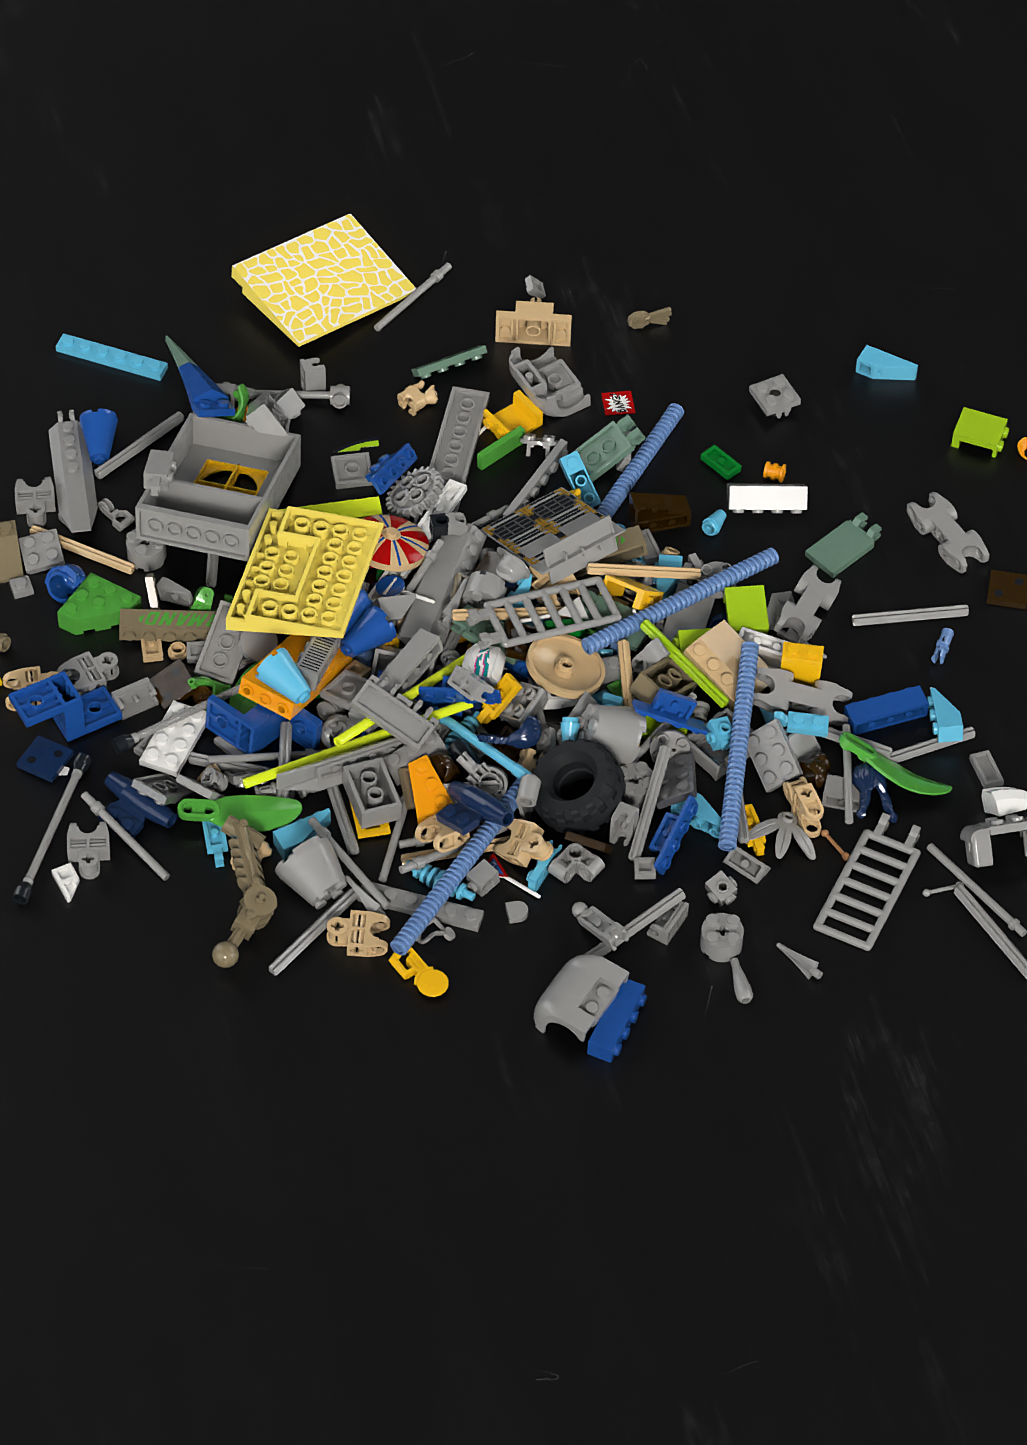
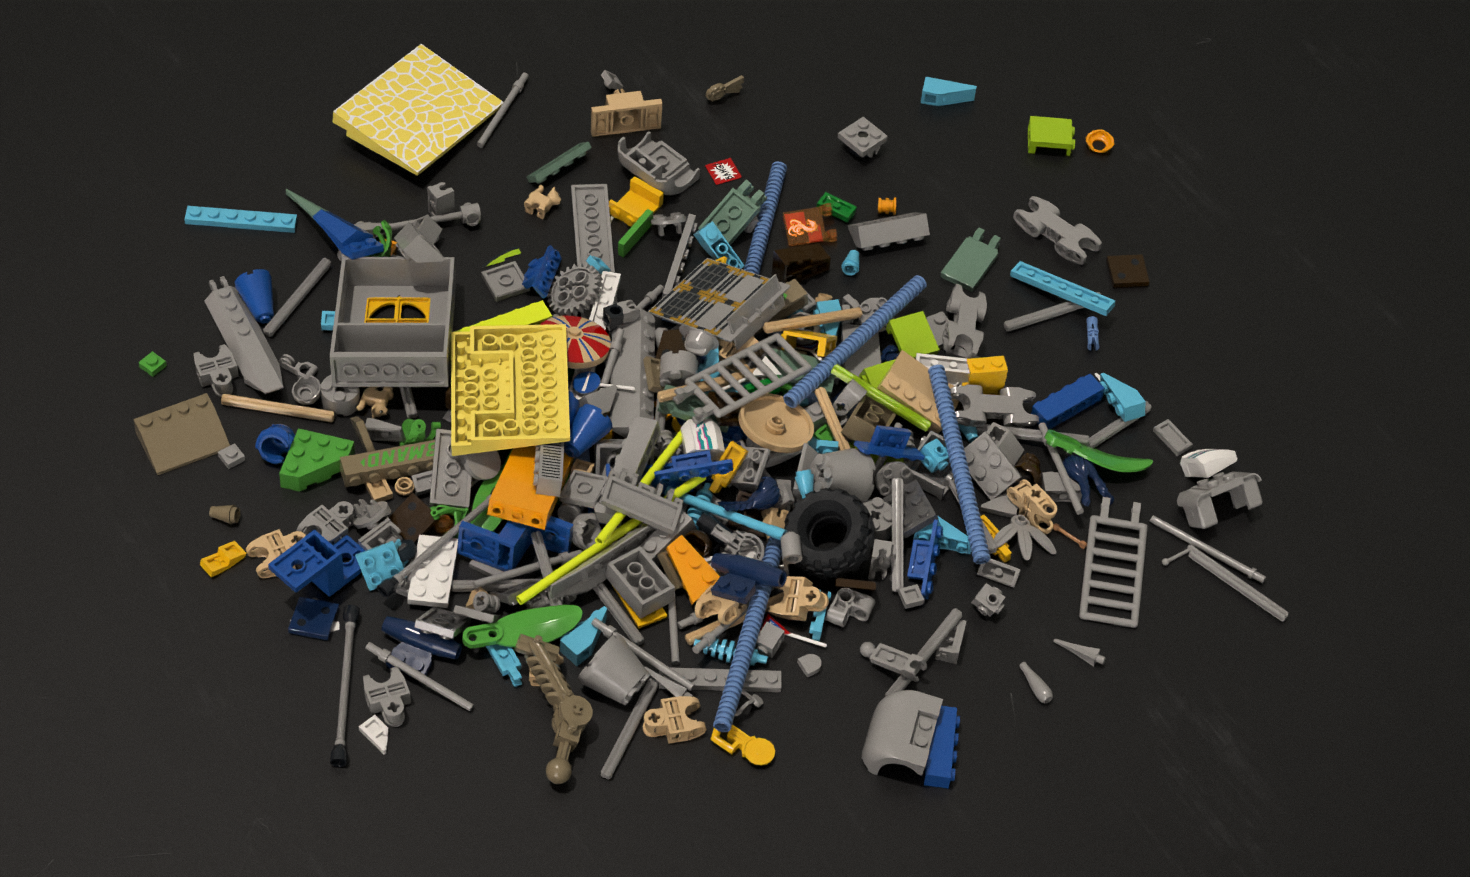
camera: 20 degrees left, 0 degrees up
(41, 551) = (240, 418): light grey plate -> none
(114, 538) = (306, 390): none -> light grey hair
(130, 717) = (385, 561): none -> medium azure plate
(132, 669) = (369, 515): none -> light grey plate
(159, 471) = (340, 317): light grey hinge -> none
(180, 561) = (376, 399): none -> tan animal
(284, 676) = (532, 490): medium azure cone -> none
(447, 471) = (598, 264): none -> medium azure plate
(453, 604) = (654, 387): light grey piece -> none
(469, 684) = (703, 459): light grey hinge -> none
(682, 475) = (808, 226): none -> clear orange flag
(721, 936) = (1005, 645): light grey brick -> none
(773, 799) = (1000, 506): none -> light grey tile
(804, 723) = (1007, 430): medium azure plate -> none
(927, 593) = (1063, 288): none -> medium azure plate

